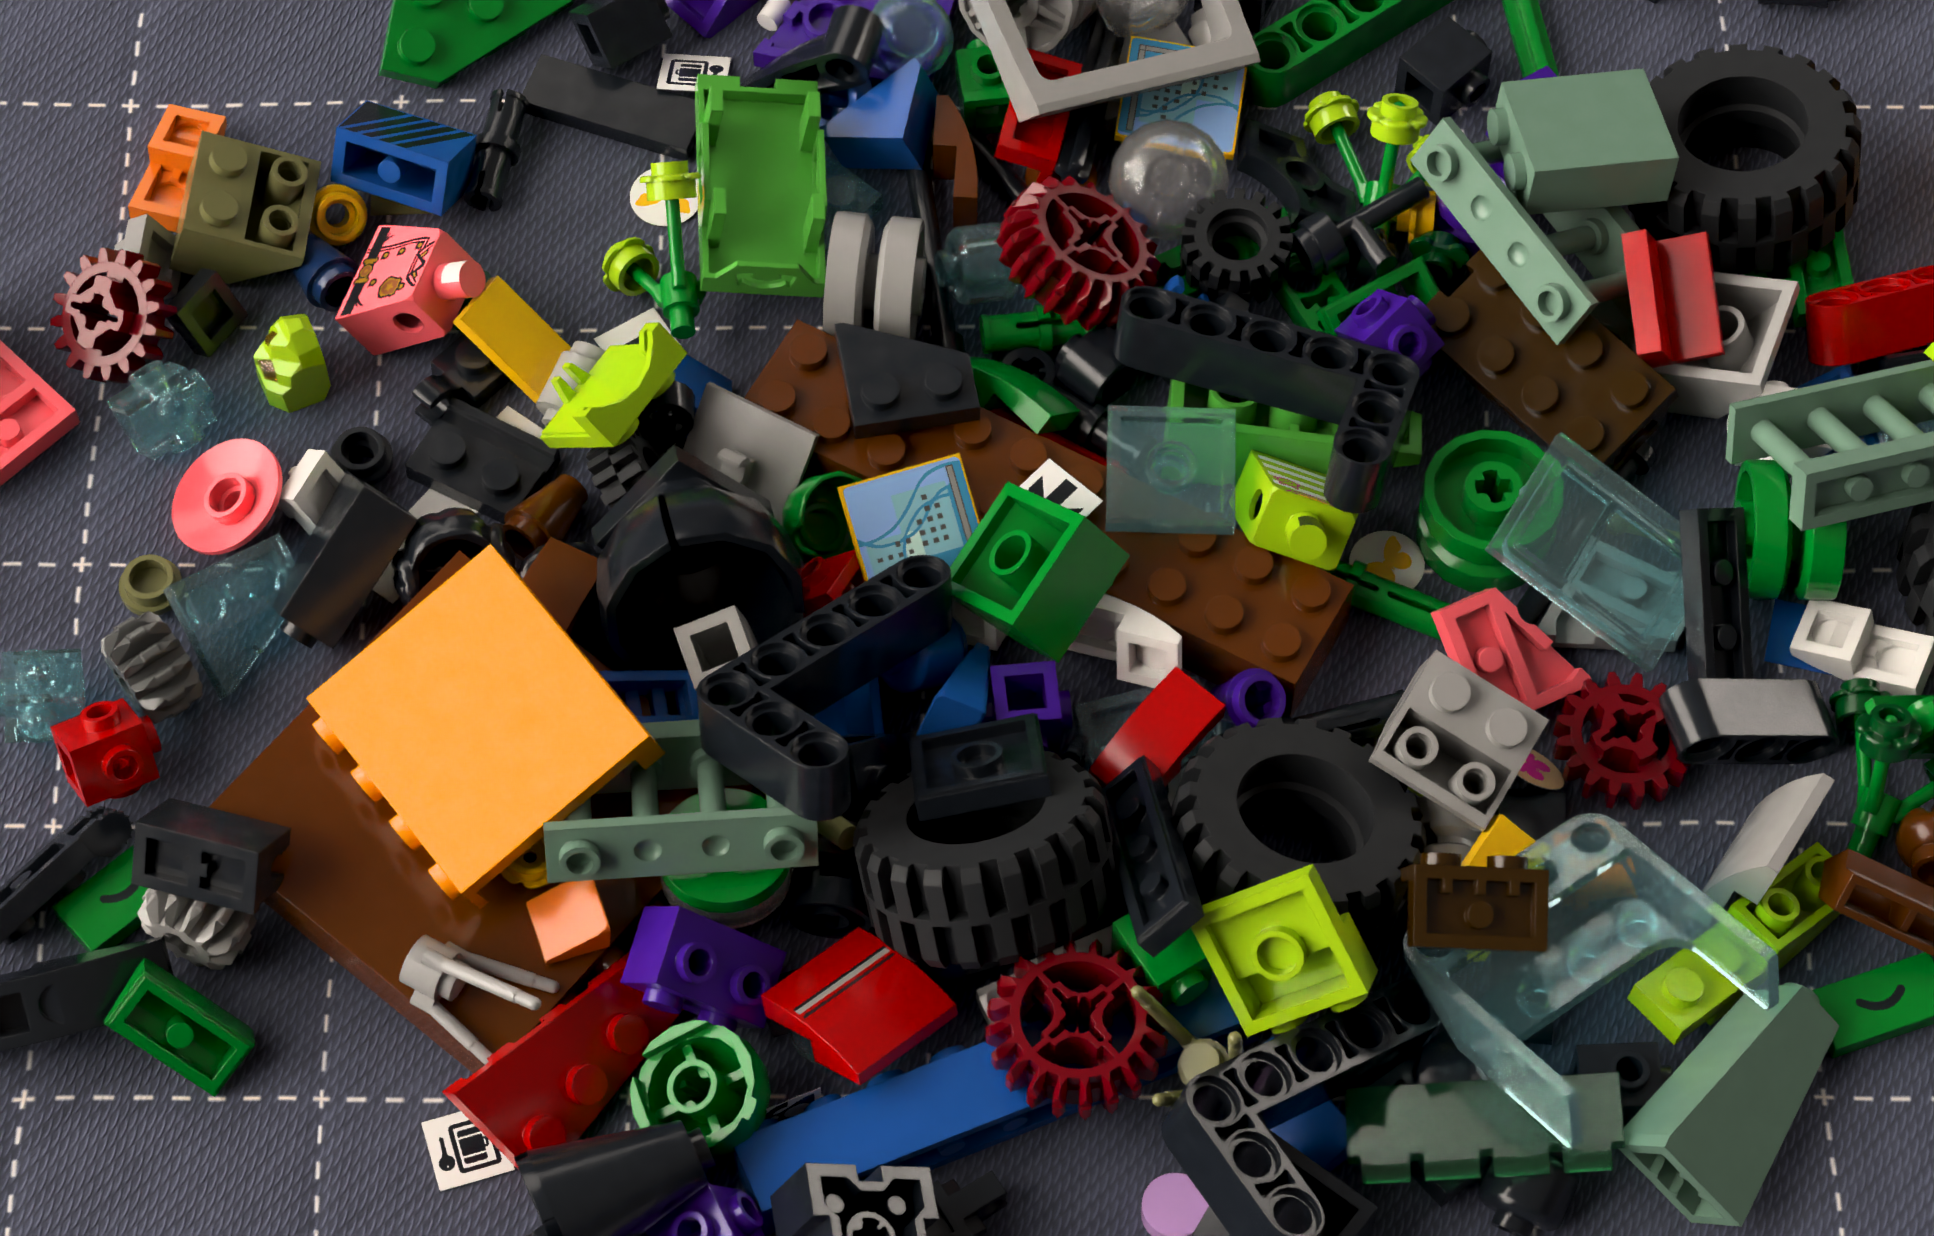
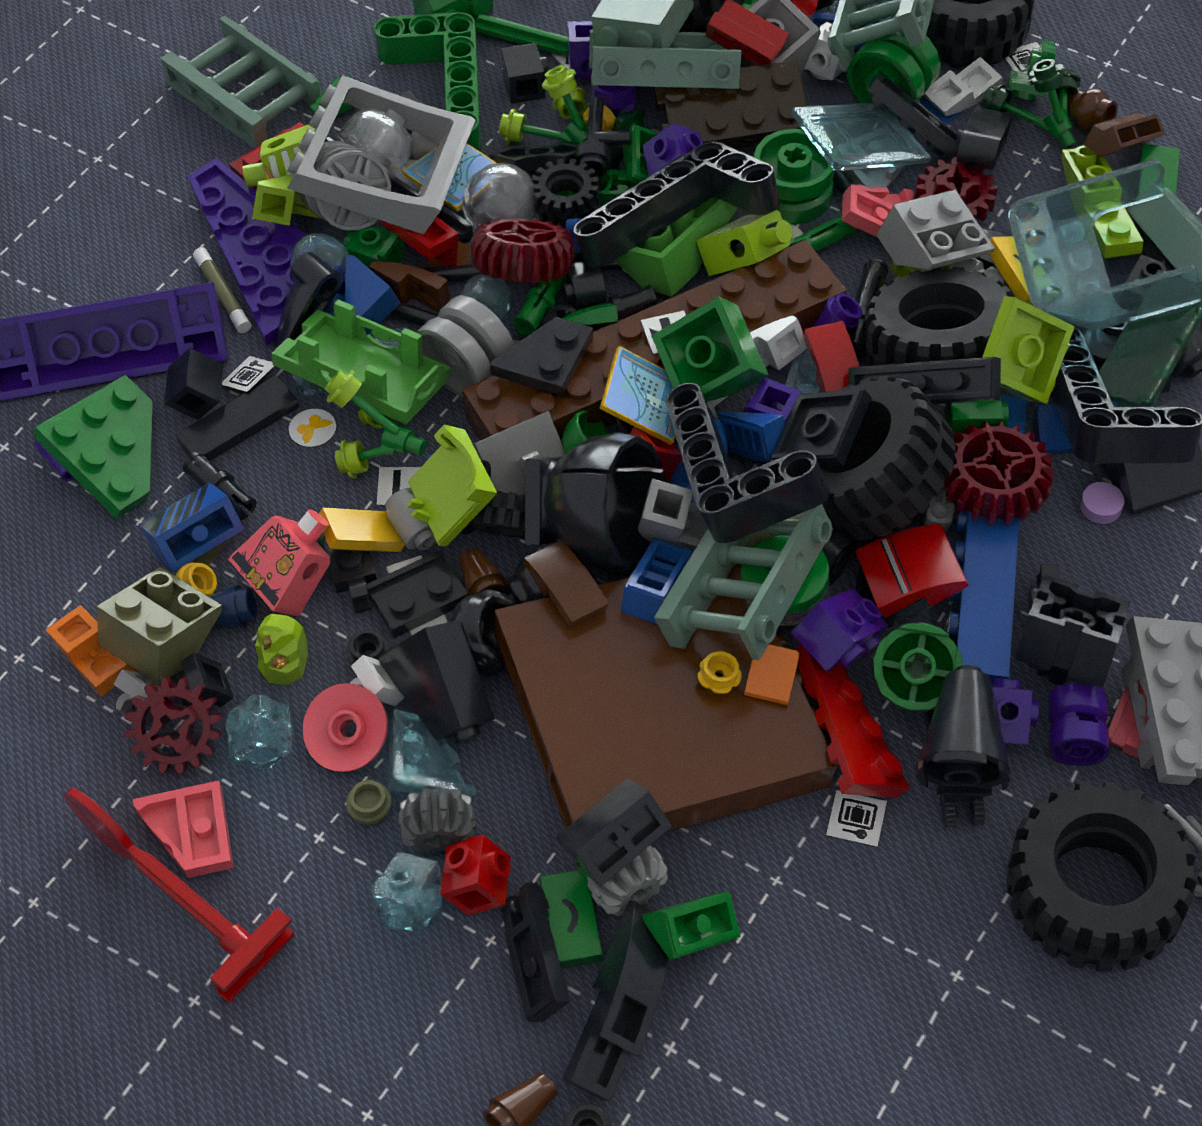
camera: 55 degrees left, 5 degrees down
(443, 970) = (767, 751): light grey plant -> none
(478, 724) = (639, 640): light orange panel -> none
(1170, 470) = (690, 269): clear light blue plate -> none
(1197, 1053) = (1052, 428): olive plant -> none
(1477, 906) = (1052, 259): dark brown bracket -> none
(1767, 840) = (1060, 154): light grey slope -> none

